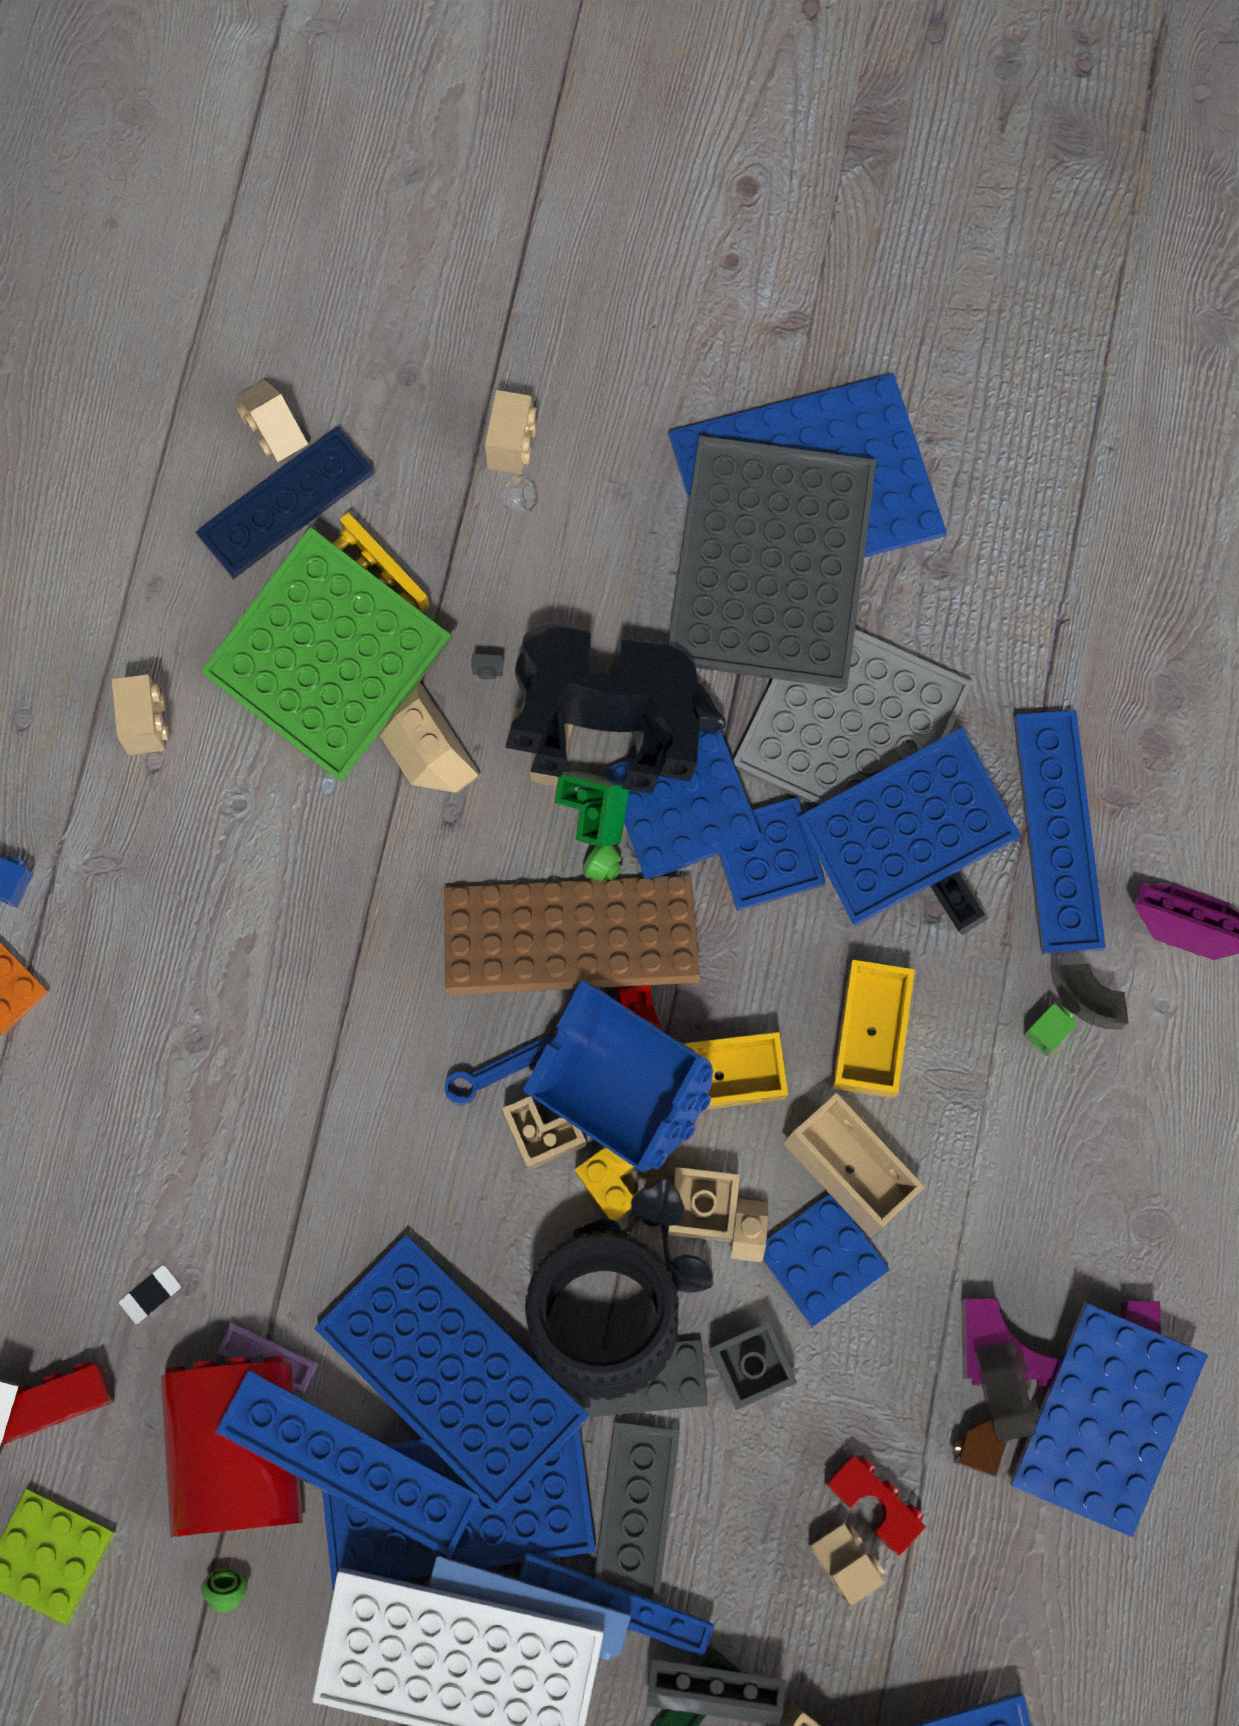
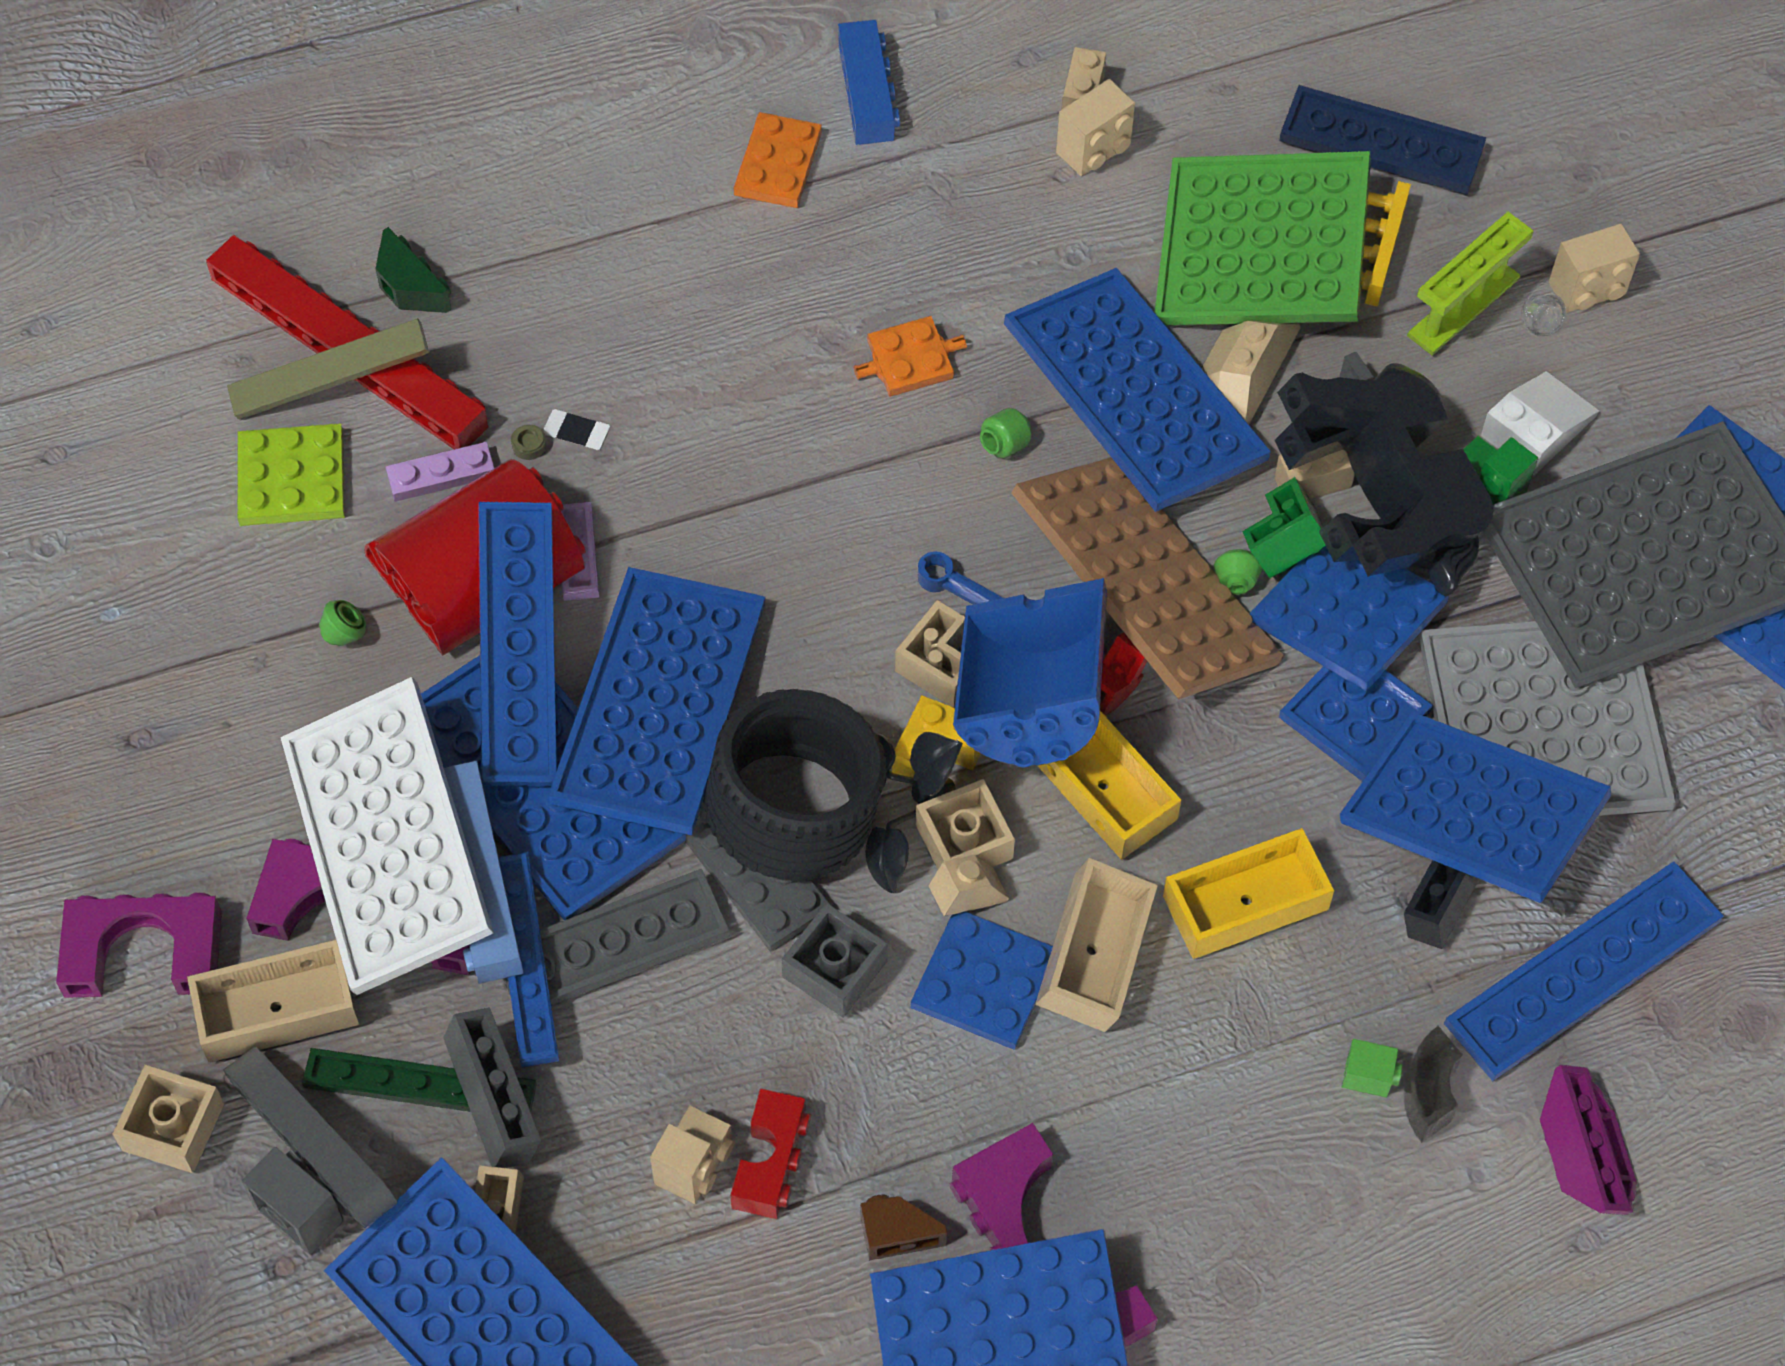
camera: 60 degrees right, 15 degrees down
(85, 696) = (1084, 74): none -> tan brick
(123, 1429) = (439, 471): none -> lavender plate
(139, 1341) = (528, 442): none -> olive tile
(252, 989) = (910, 356): none -> orange plate
(269, 415) = (1447, 82): tan brick -> none
(373, 959) = (1005, 433): none -> bright green head
(397, 837) = (1136, 389): none -> blue plate
(470, 531) = (1469, 283): none -> lime fence
(606, 559) = (1540, 417): none -> white slope
(641, 622) = (1502, 471): none -> green brick
(1006, 1392) = (960, 1202): clear smoke brick -> none

